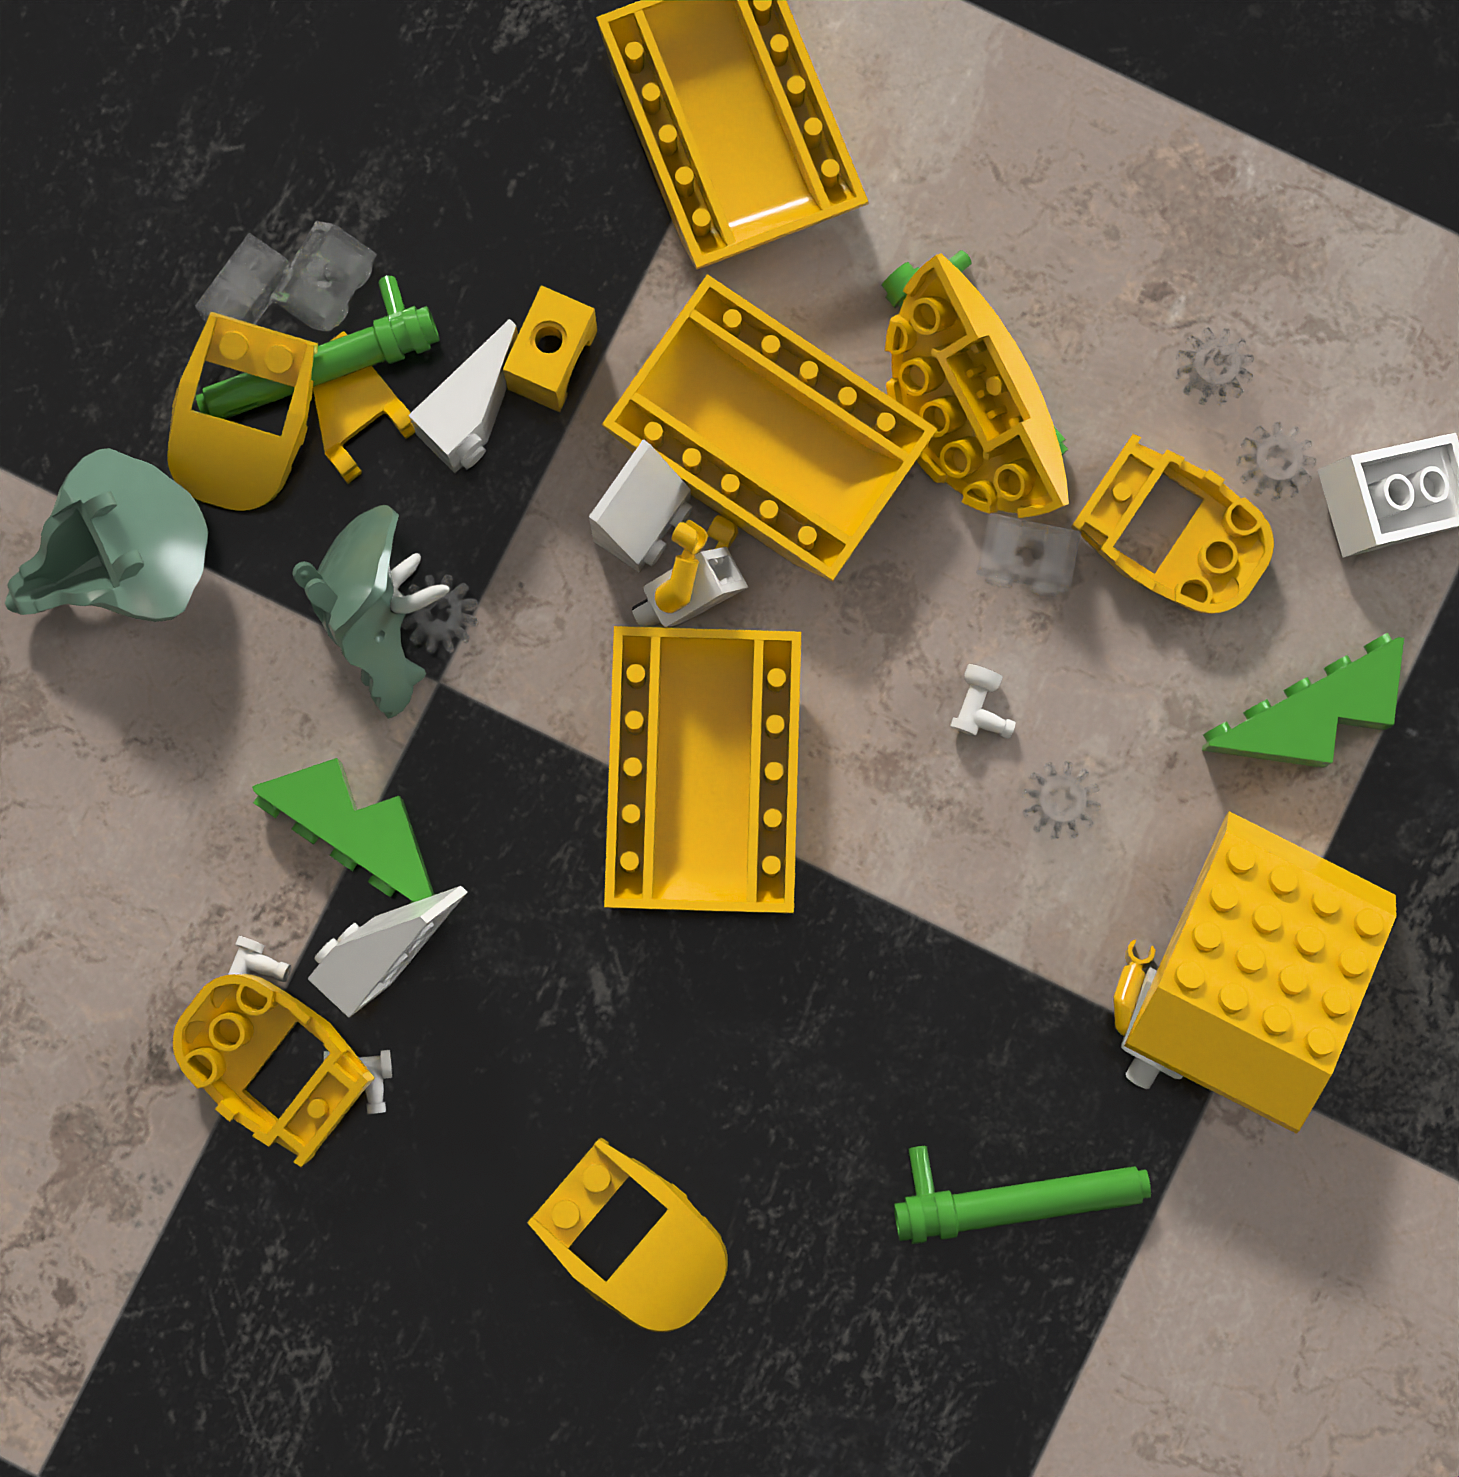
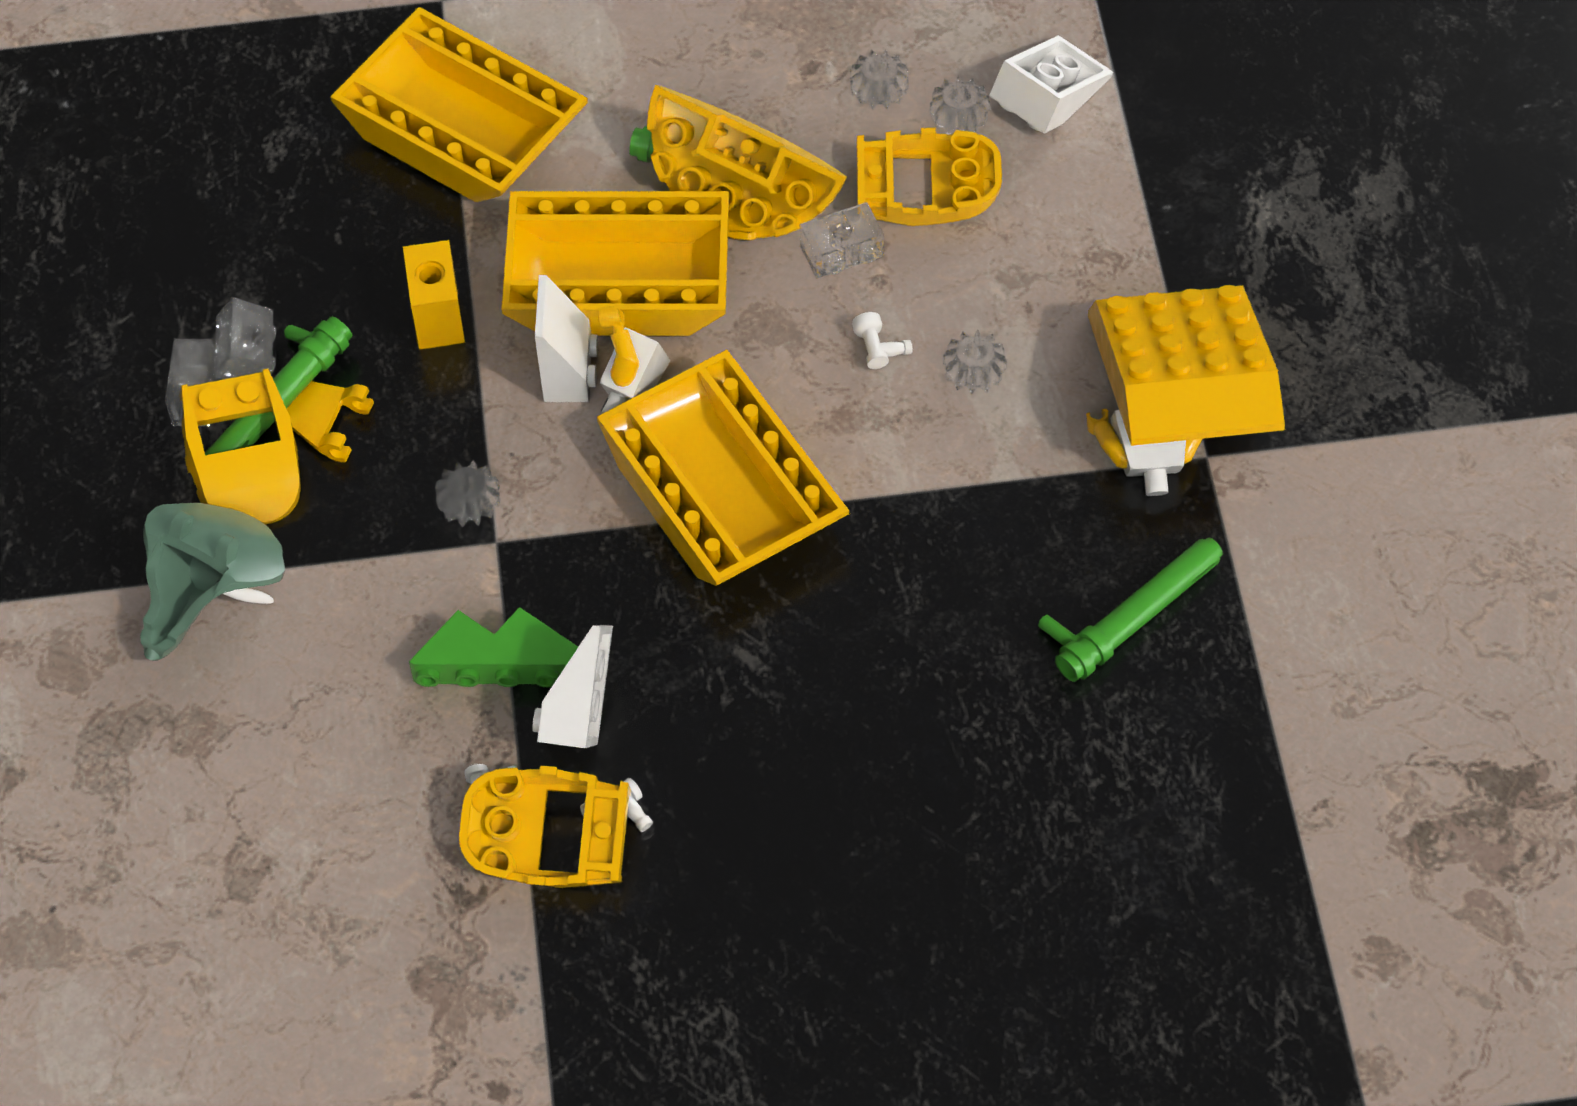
camera: 30 degrees left, 25 degrees down
(363, 608) = (410, 509): sand green animal -> none
(463, 409) = (395, 361): white slope -> none
(667, 1273) = (932, 796): yellow slope -> none
(1306, 722) = (1097, 227): bright green slope -> none

